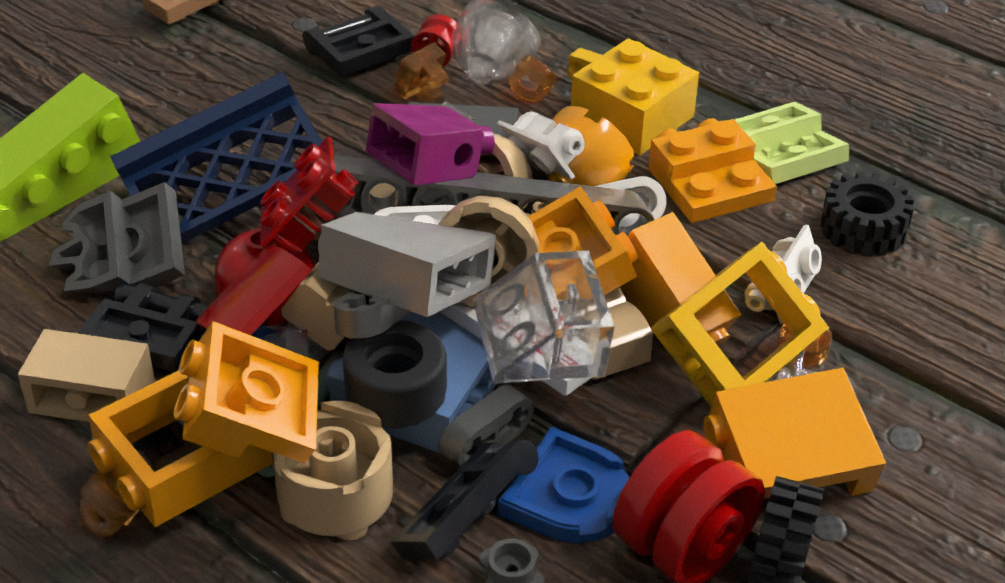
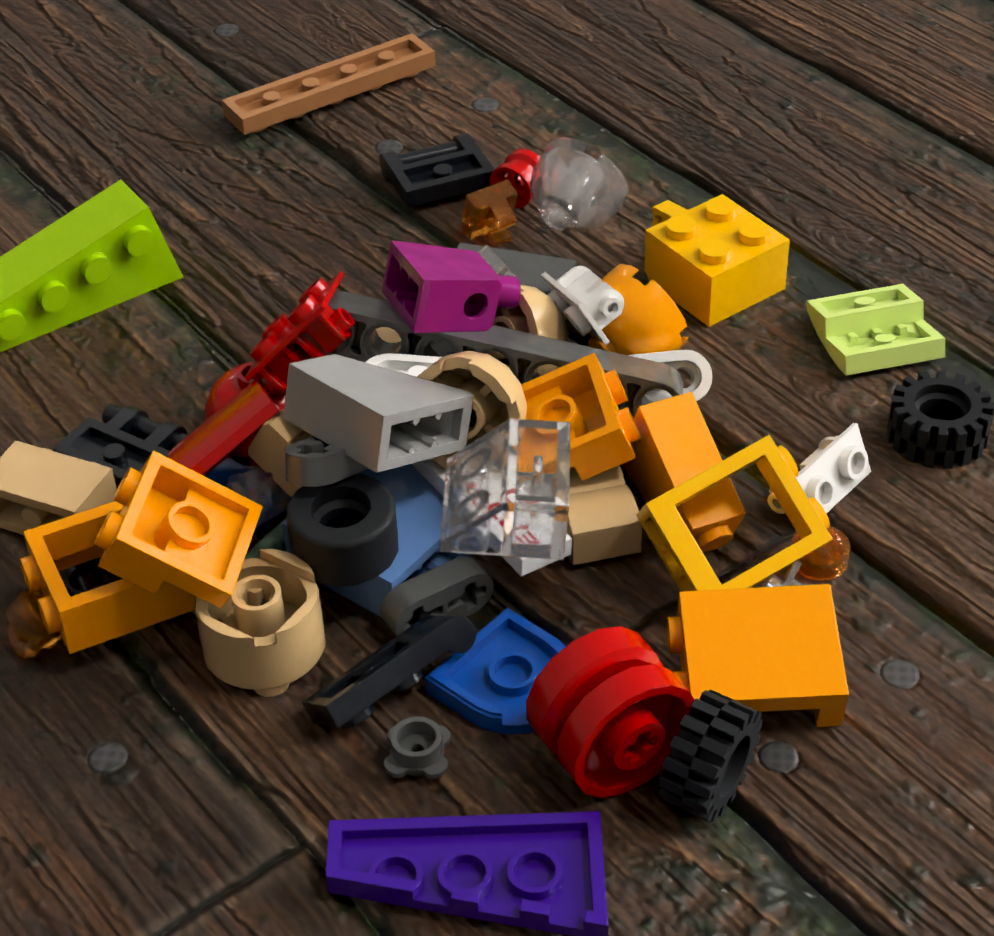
camera: 15 degrees right, 0 degrees up
(122, 242) = (123, 360): dark grey plate -> none
(209, 138) = (237, 262): dark blue fence -> none
(538, 74) = (618, 224): clear orange tile -> none
(710, 169) = (777, 350): light orange plate -> none

